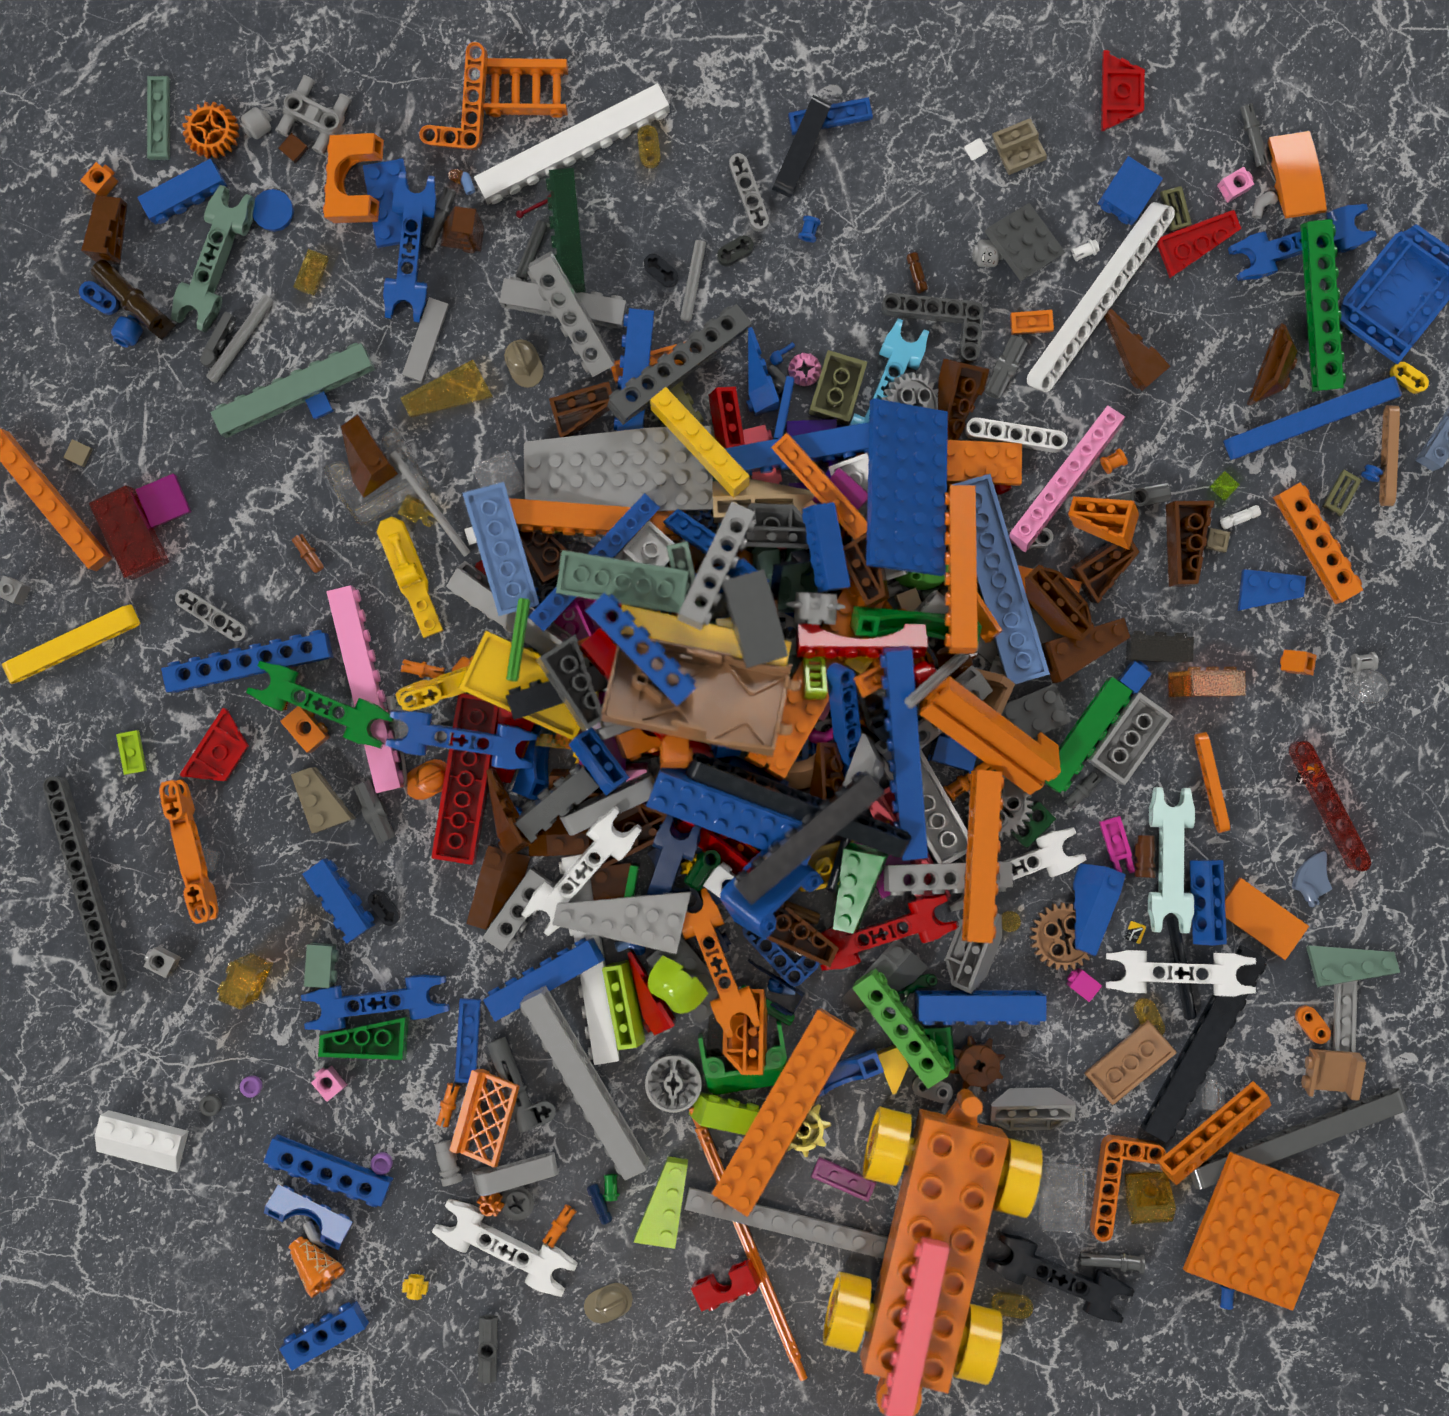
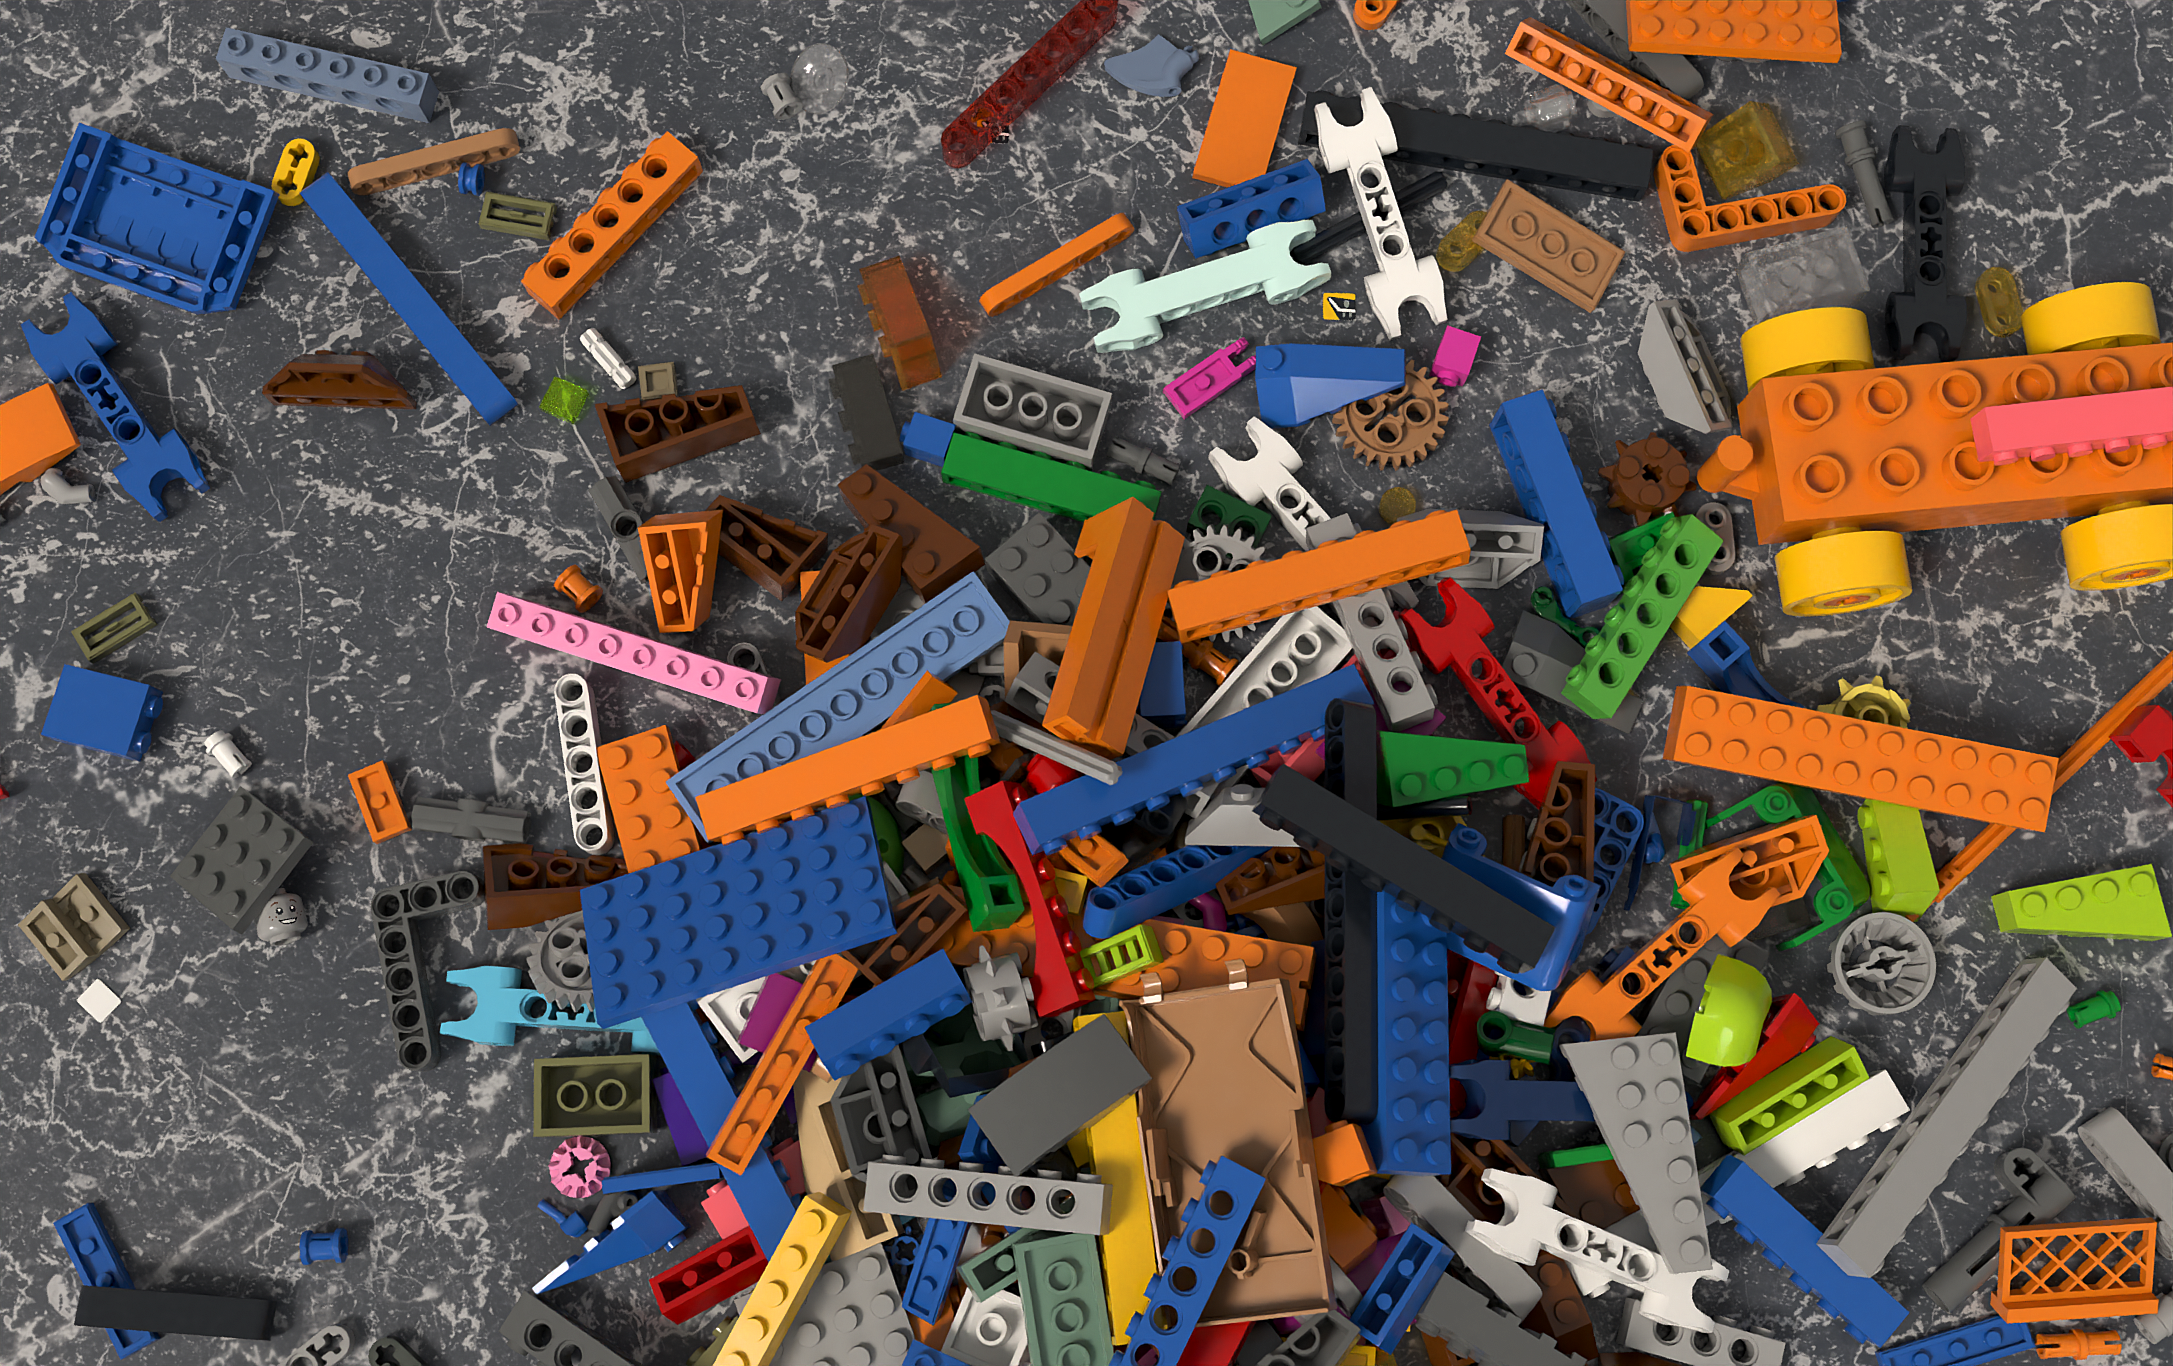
camera: 115 degrees left, 10 degrees down
(599, 1204) = (2128, 1019): dark blue axle -> none
(790, 1224) = (2026, 685): light grey plate -> none
(843, 1179) = (1917, 634): magenta tile -> none
(917, 272) = (348, 1028): reddish brown axle -> none
(1100, 296) = (302, 701): white beam -> none
(1141, 363) = (396, 598): reddish brown wedge -> none
(1145, 857) = (1209, 329): reddish brown axle -> none
(1193, 242) = (164, 581): red wing -> none
(1228, 187) = (56, 550): bright pink brick -> none
(1266, 588) = (711, 279): blue wing -> none
(1298, 662) = (817, 194): orange brick -> none
(1314, 296) = (203, 355): green brick -> none

